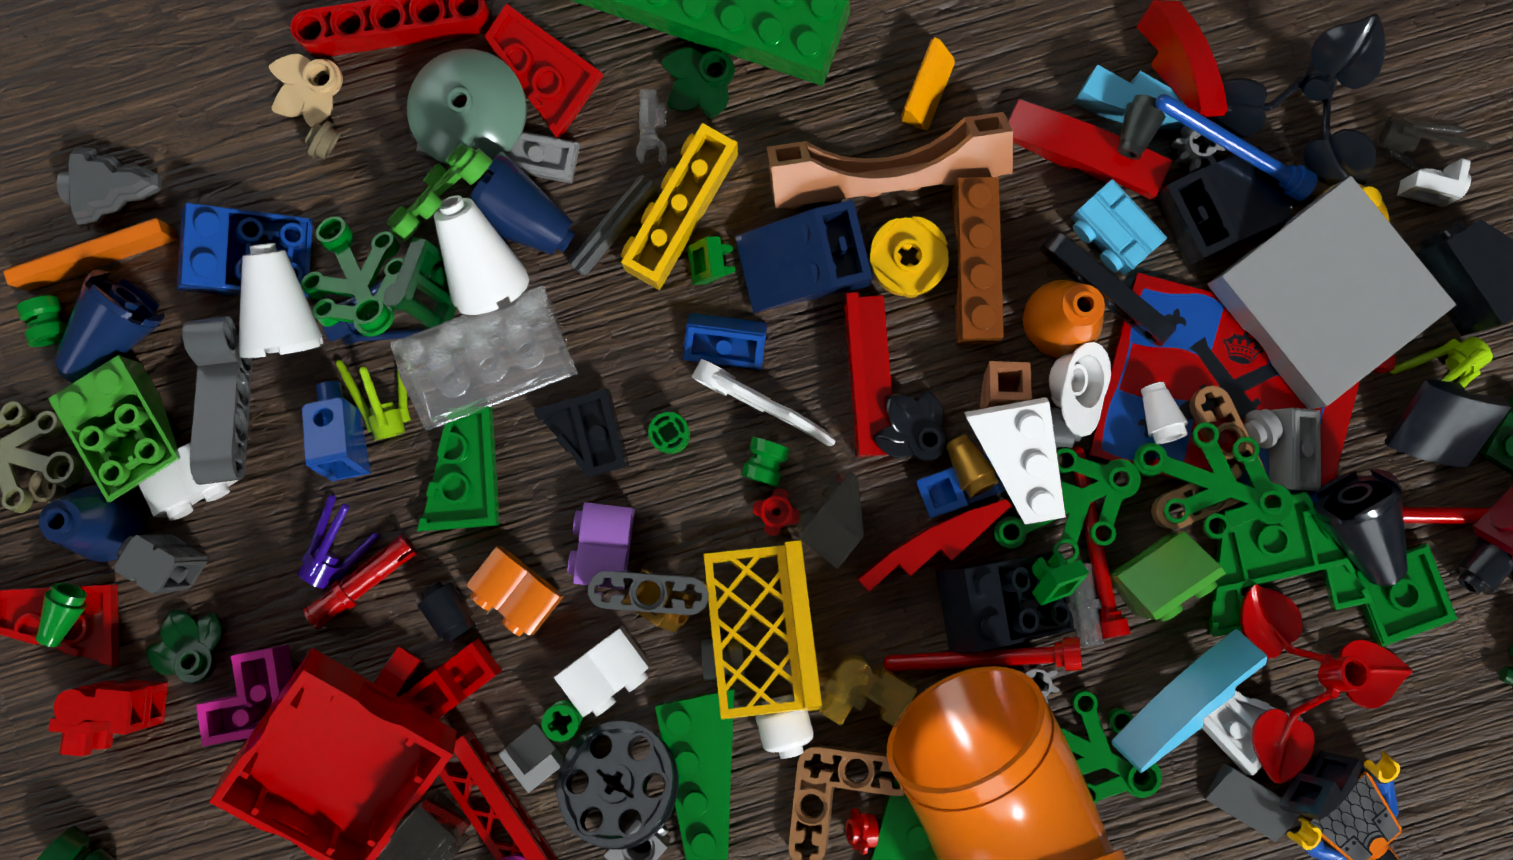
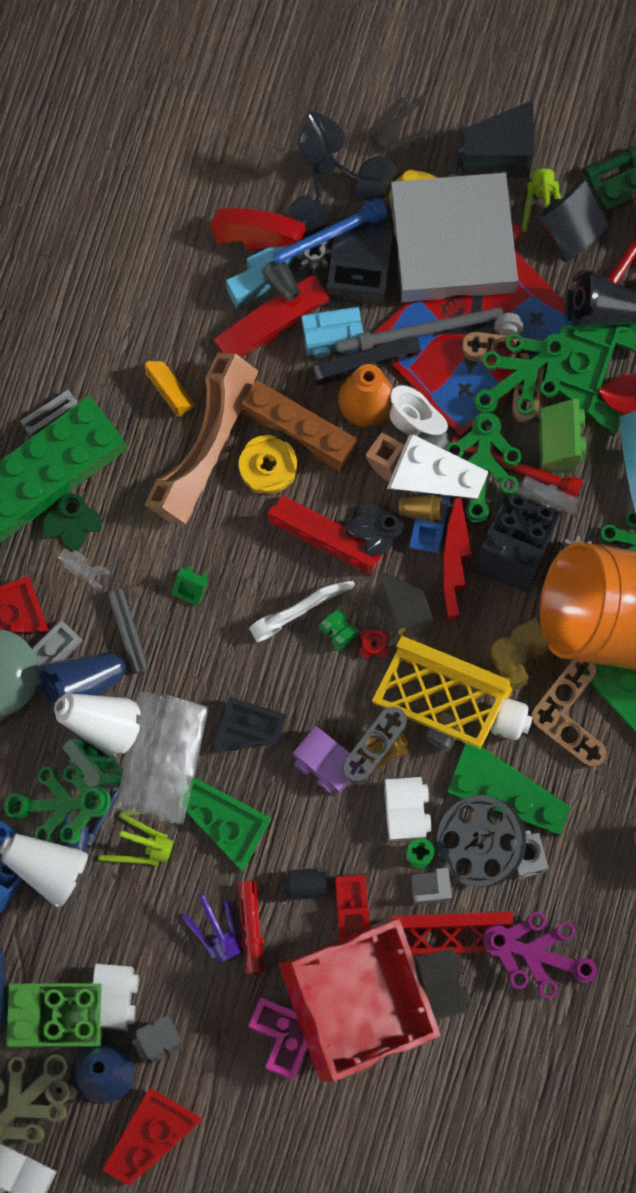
camera: 60 degrees left, 10 degrees down
(59, 613) = (149, 1125): green cone -> none
(98, 710) = (223, 1139): red hips -> none
(182, 641) = (215, 1066): dark green plate -> none
(220, 400) = (79, 937): dark grey beam -> none
(334, 435) = (157, 883): blue torso -> none
(398, 671) = (321, 933): red piece -> none
(464, 163) = (44, 722): bright green plant -> none
(514, 592) = (320, 833): orange brick -> none
(675, 436) = (282, 681): green wheel -> none
(680, 206) = (146, 579): yellow brick -> none
(725, 341) = (246, 608): blue slope -> none
(804, 257) = (227, 526): dark blue slope -> none
(862, 831) = (603, 713): red plate -> none
(1059, 579) = (522, 499): green tile -> none
(1064, 654) = (569, 524): red piece -> none
(1131, 273) = (366, 340): none -> dark grey bar
(1162, 414) = (465, 377): white cone -> none
(1297, 454) = (535, 314): light grey slope -> none
(1436, 186) = (430, 135): white bracket -> none

